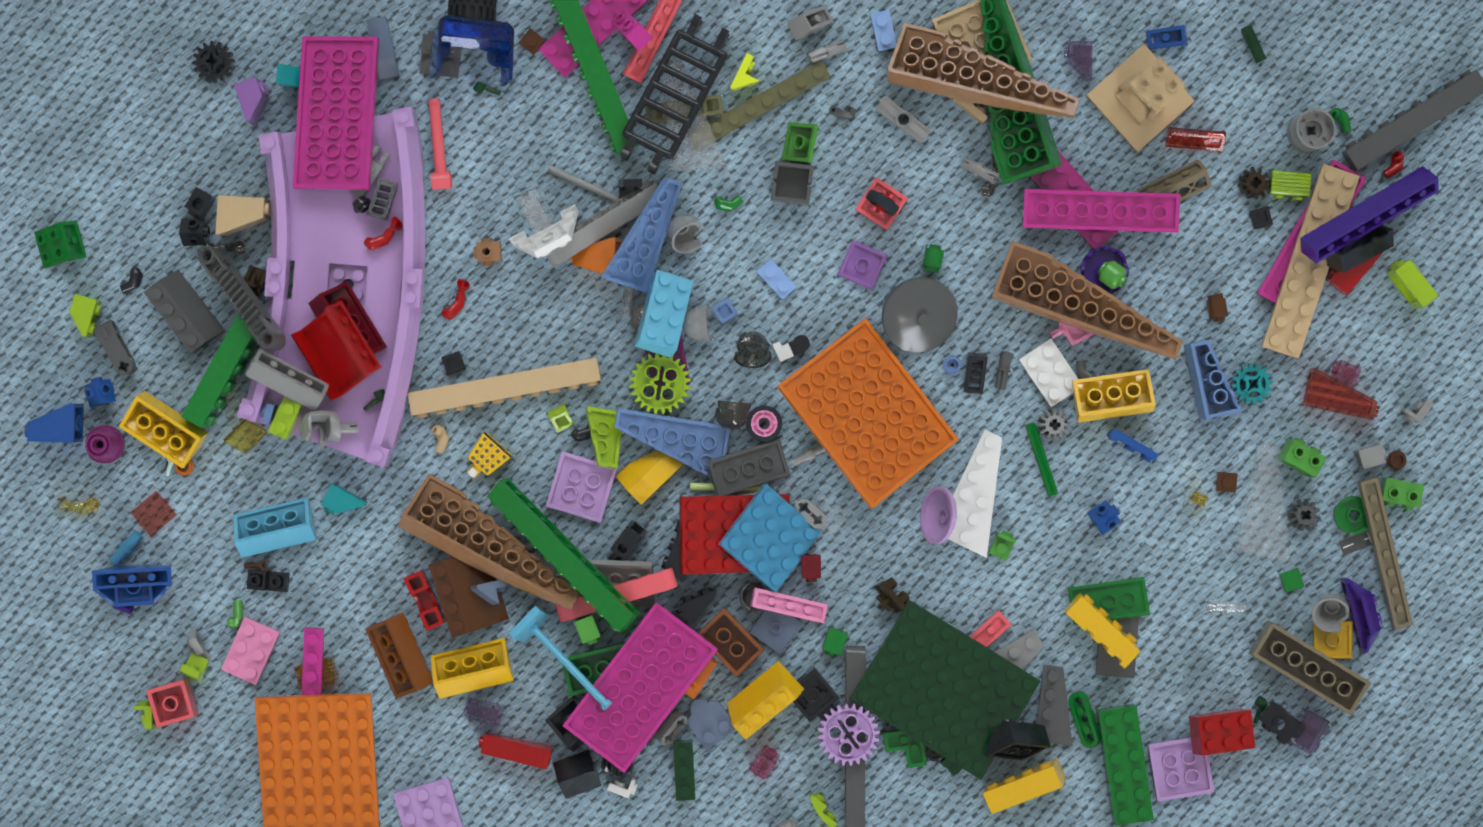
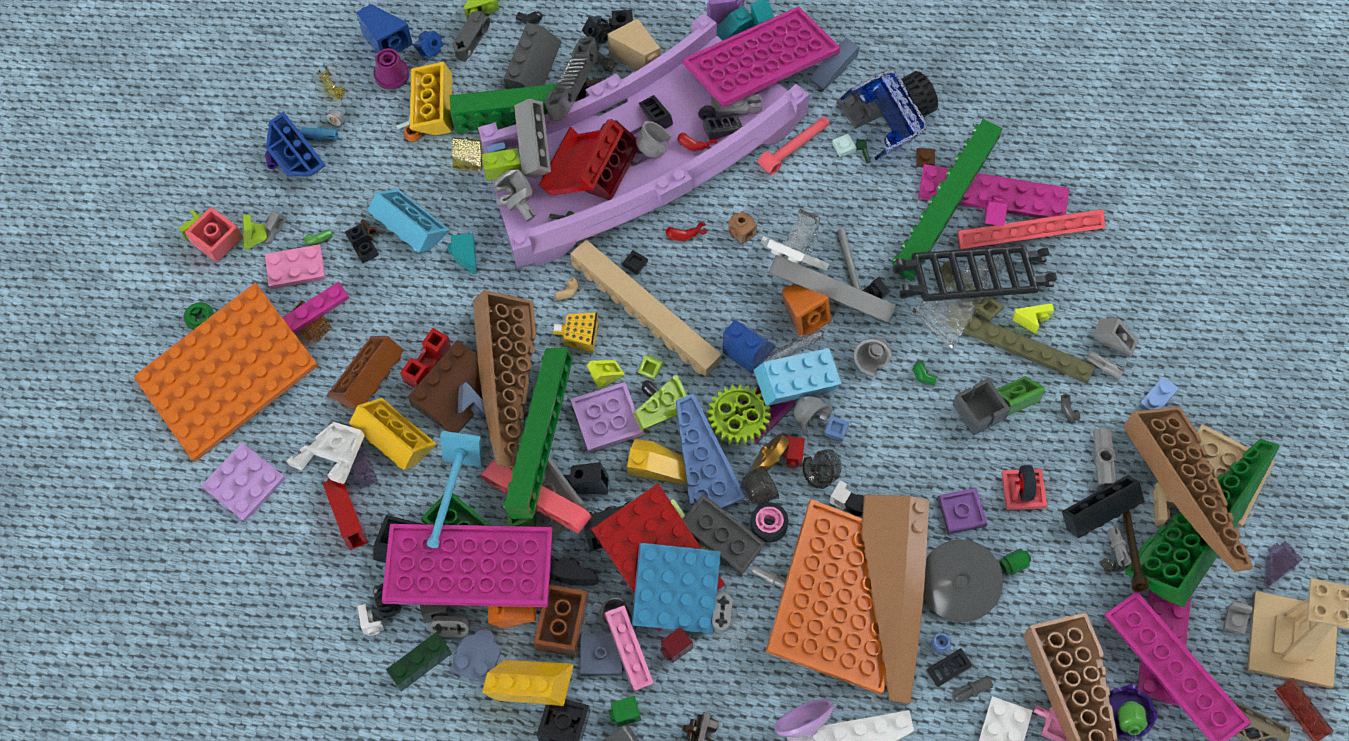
camera: 55 degrees right, 25 degrees down
(119, 524) = (335, 118): none -> tile
(153, 513) = (360, 137): clear red piece -> none
(234, 758) = (195, 310): none -> green gear
(277, 106) = (735, 23): none -> teal slope
(338, 248) = (660, 114): none -> black slope
(354, 273) = (651, 138): none -> light grey helmet
(452, 719) = (334, 443): none -> white wing
(468, 101) = (844, 145): none -> light aqua plate
(540, 460) = (604, 372): none -> neon yellow slope
(576, 774) = (354, 577): black slope -> none
(588, 629) = (490, 496): bright green brick -> none
(602, 327) = (745, 346): none -> blue slope
(640, 250) = (841, 325): medium blue wing -> none
(712, 383) = (770, 453): none -> pearl gold wheel
(721, 361) = (794, 452): none -> red brick
(764, 762) = (472, 727): clear pink bracket -> none
(776, 279) = (894, 452): light blue plate -> none
(864, 349) = (896, 558): none -> medium nougat wedge
(941, 155) = (1103, 506): none -> black brick
(1020, 183) = (1139, 581): none -> dark brown piece
(1095, 126) = (1237, 617): none -> light grey bracket

